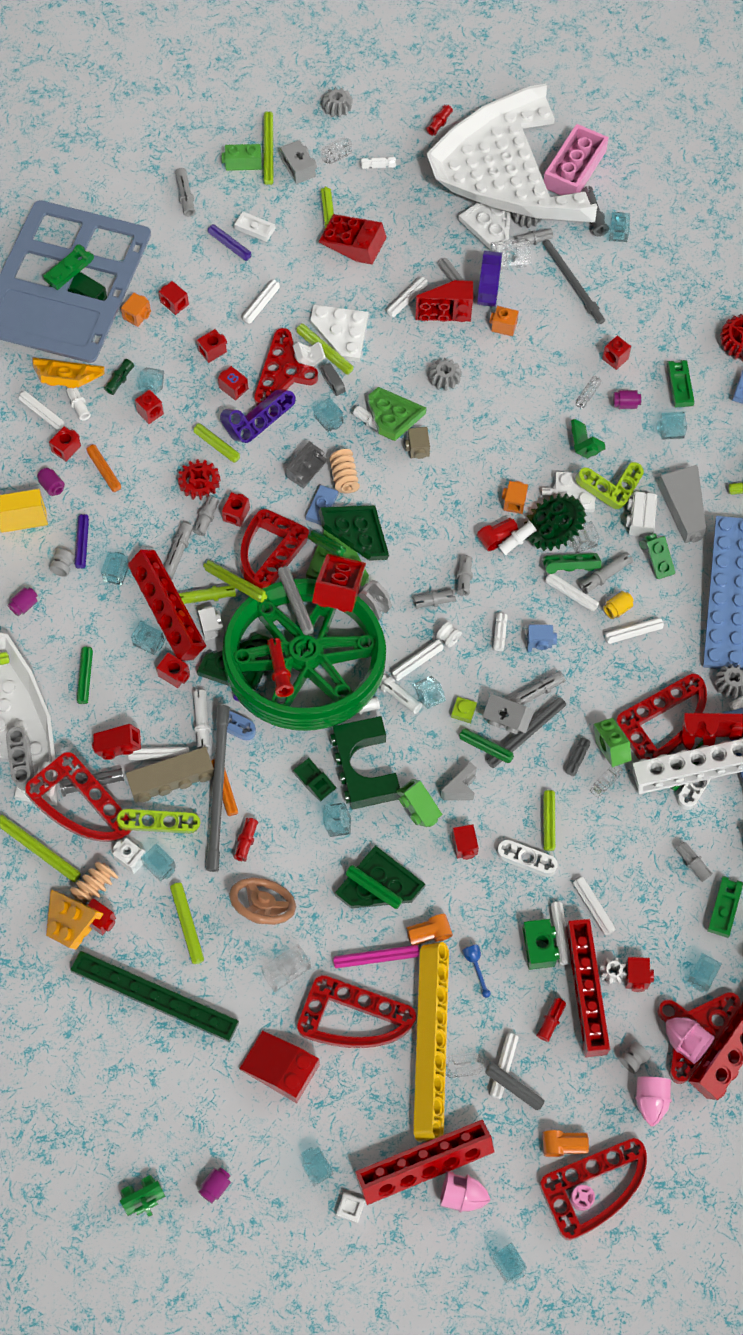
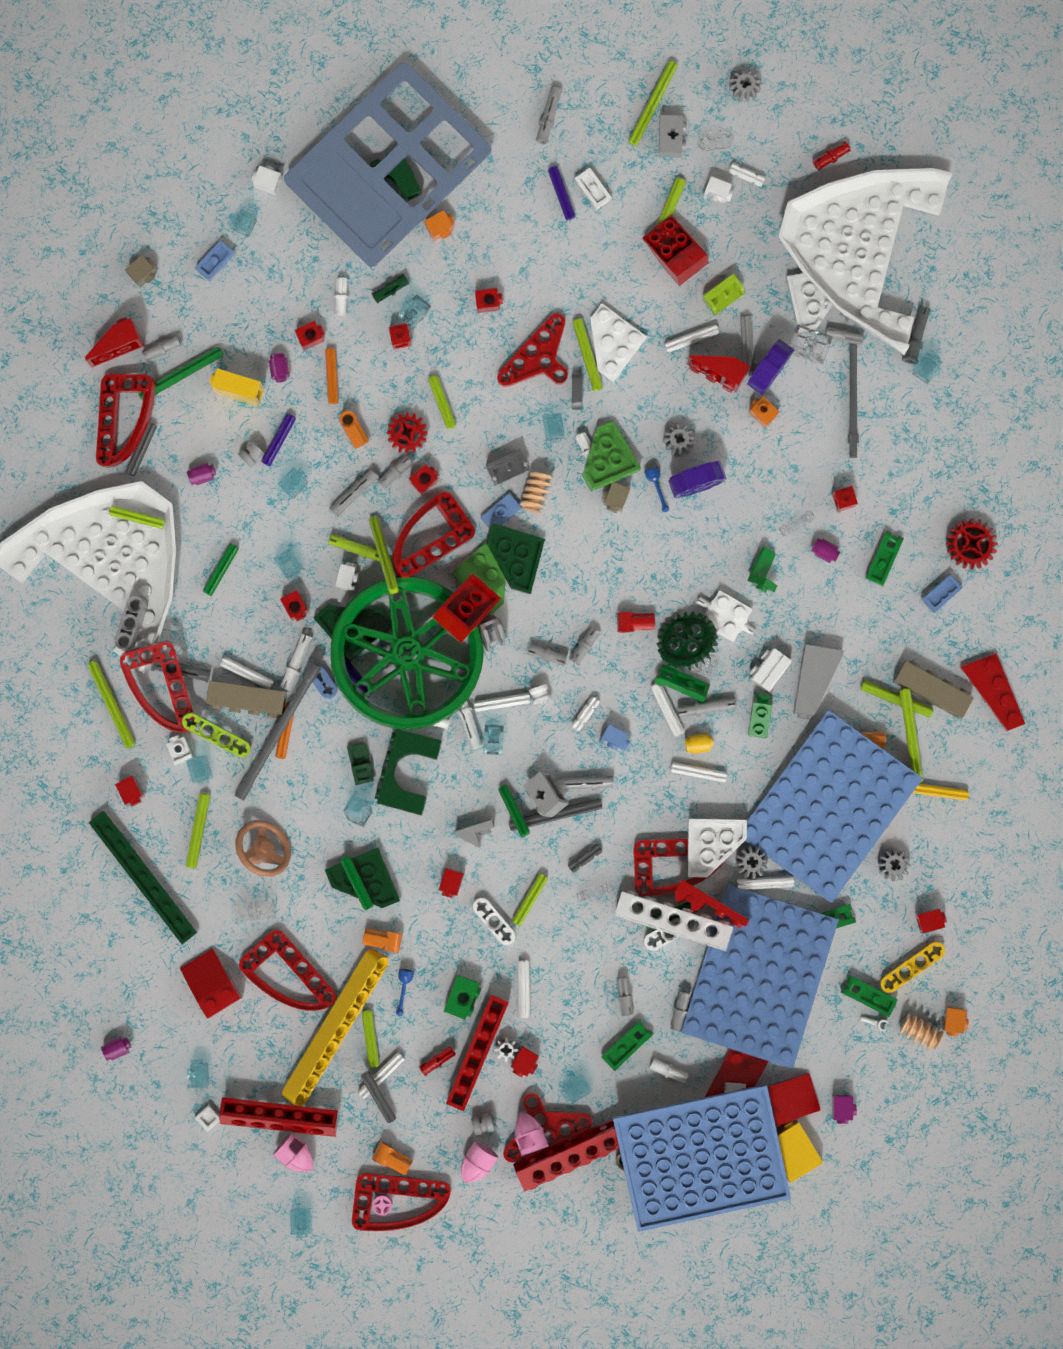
camera: 30 degrees right, 20 degrees up
(41, 410) = (305, 288): white axle -> none
(66, 373) = (342, 263): light orange wing -> none
(68, 267) = (396, 155): green plate -> none
(69, 919) = (105, 782): light orange wing -> none
(93, 883) = (140, 761): light nougat piece -> none
(116, 741) = (214, 647): red brick -> none
(142, 1199) = (58, 1032): green hips -> none
(148, 499) = (354, 431): none -> orange piece
(166, 605) = (318, 542): red brick -> none
(173, 297) = (479, 229): red brick -> none
(233, 382) = (486, 349): red brick -> none
(242, 157) = (621, 103): bright green brick -> none
(245, 839) = (278, 786): red pin -> none
(261, 301) = (557, 273): white axle -> none
(279, 401) = (490, 399): dark purple beam -> none
(281, 675) = (370, 672): red pin -> none
(295, 600) = (421, 605): light grey axle -> none
(309, 355) = (568, 355): white bracket -> none
(327, 543) = (480, 559): green axle -> none
(362, 181) = (718, 190): none -> white brick
(376, 956) = (330, 937): dark pink axle -> none
(414, 252) = (724, 294): none -> lime hinge
(419, 803) = (431, 833): bright green brick -> none
(439, 412) = (653, 476): none -> blue hinge
(464, 710) = (516, 767): lime plate -> none
(472, 1034) = (370, 1038): none -> lime axle
(482, 389) = (697, 479): none -> dark purple connector
(515, 496) = (670, 594): orange brick -> none
(517, 537) = (648, 636): white pin -> none
(561, 933) = (484, 996): white axle -> none
(575, 161) = (929, 275): bright pink brick -> none
(612, 491) = (756, 634): lime beam -> none
(612, 742) = (616, 864): bright green brick -> none
(672, 425) = (849, 597): clear light blue brick -> none
(687, 679) = (712, 843): none -> white plate

